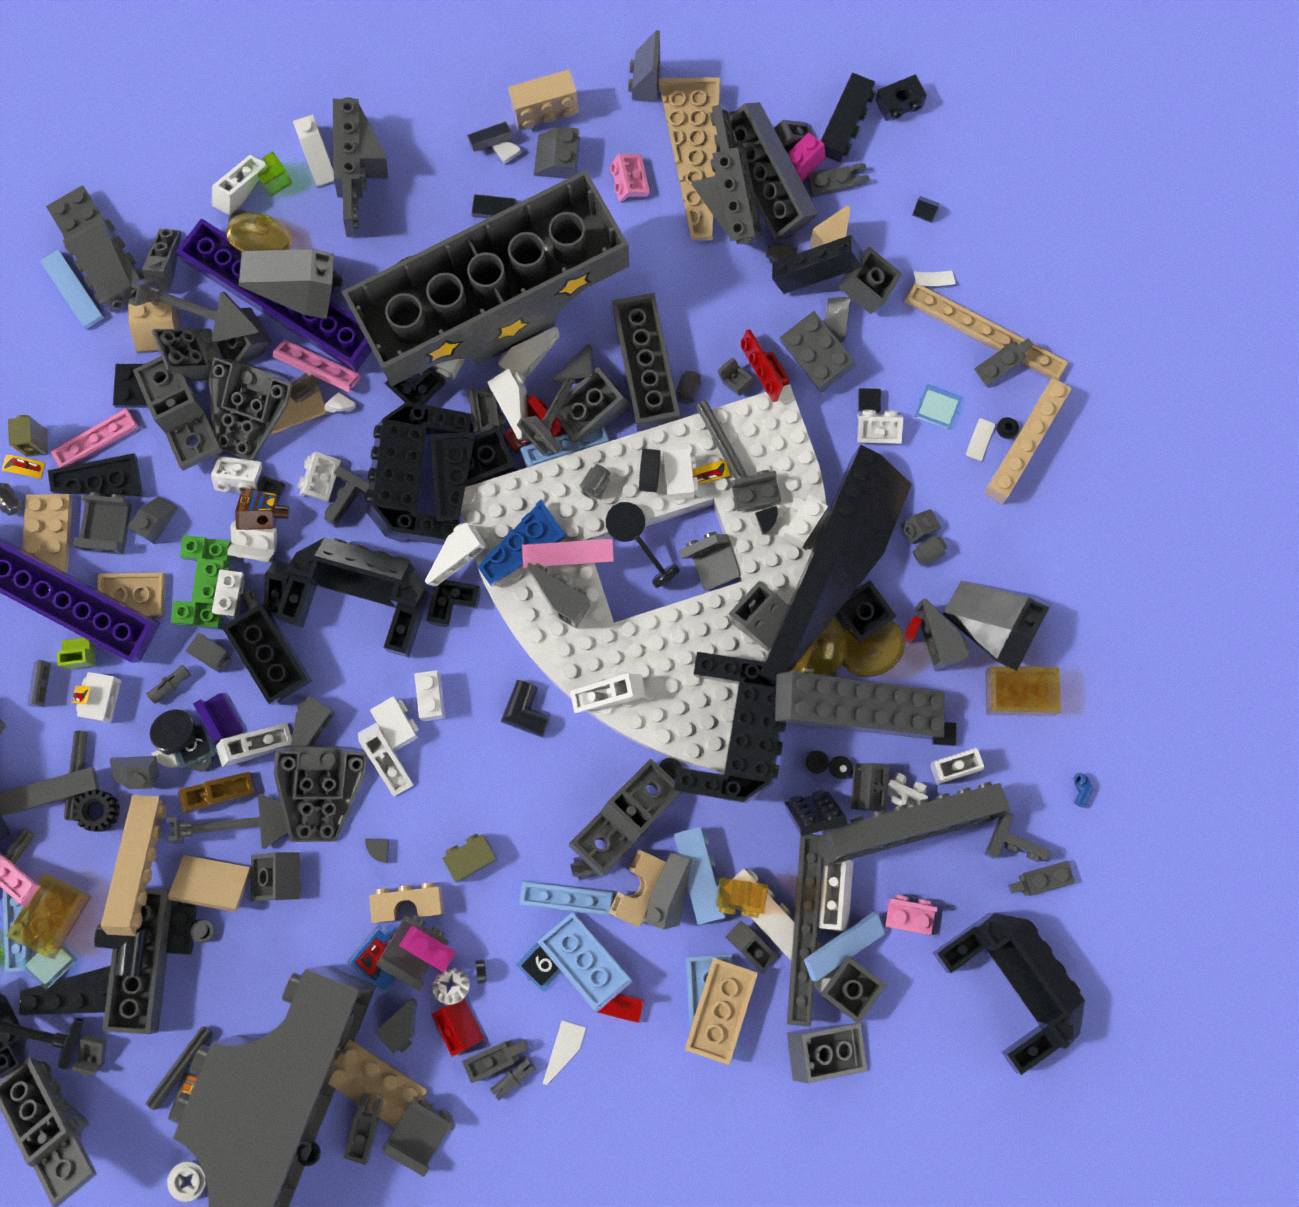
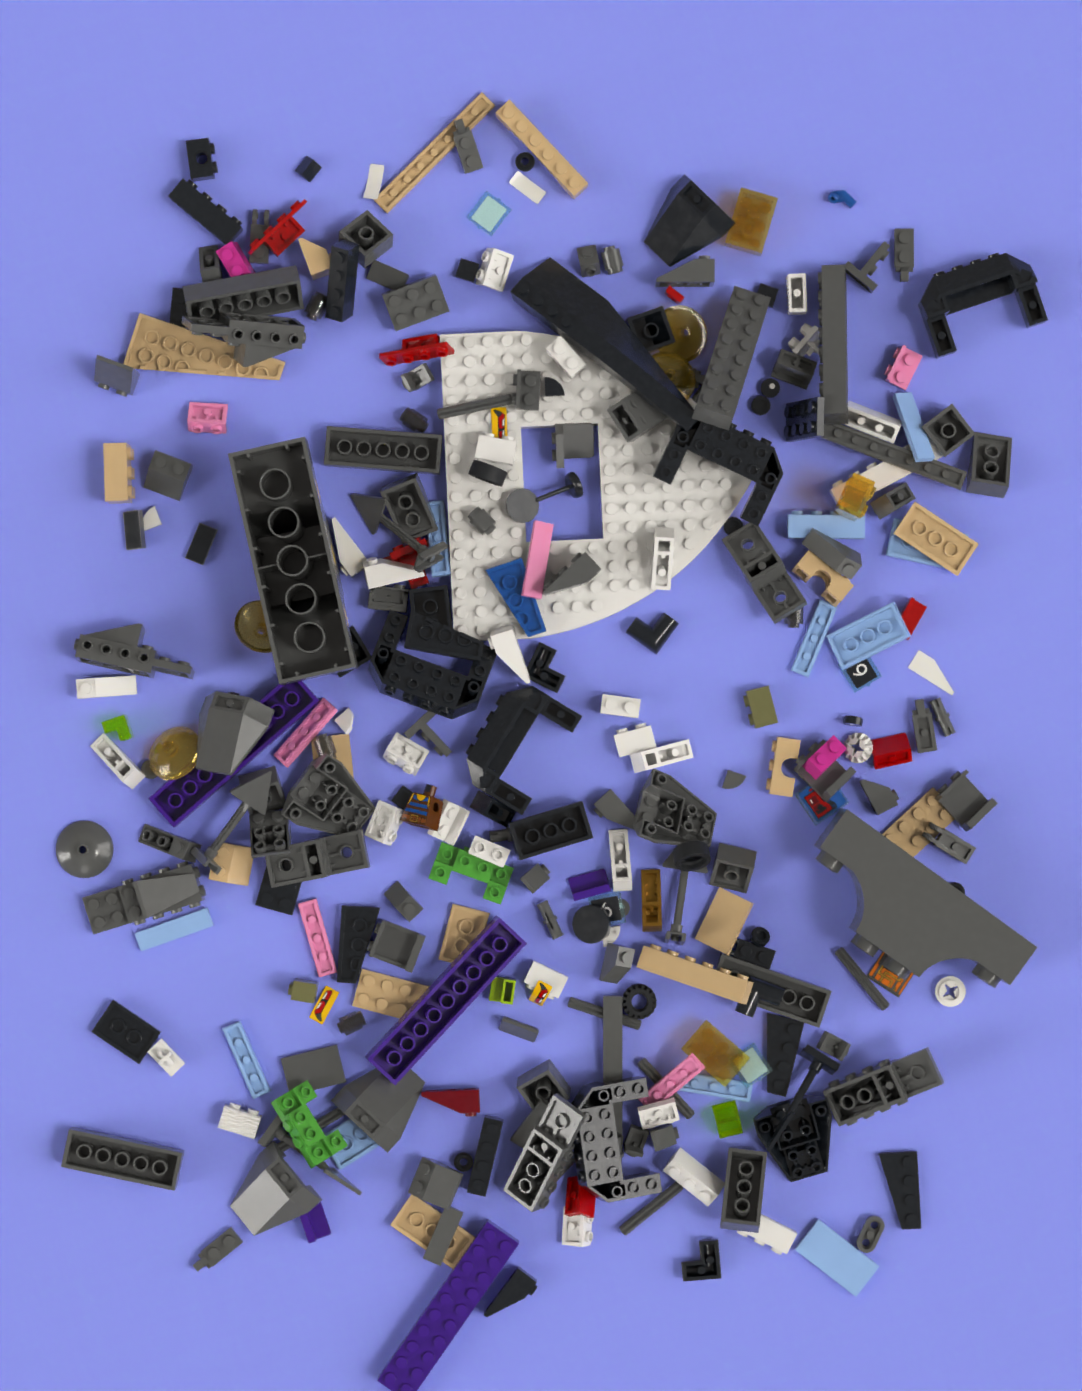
camera: 80 degrees left, 10 degrees up
(143, 187) = (98, 849): none -> dark grey dish
(273, 822) = (691, 856): none -> black tyre
(846, 192) = (283, 234): none -> red bracket

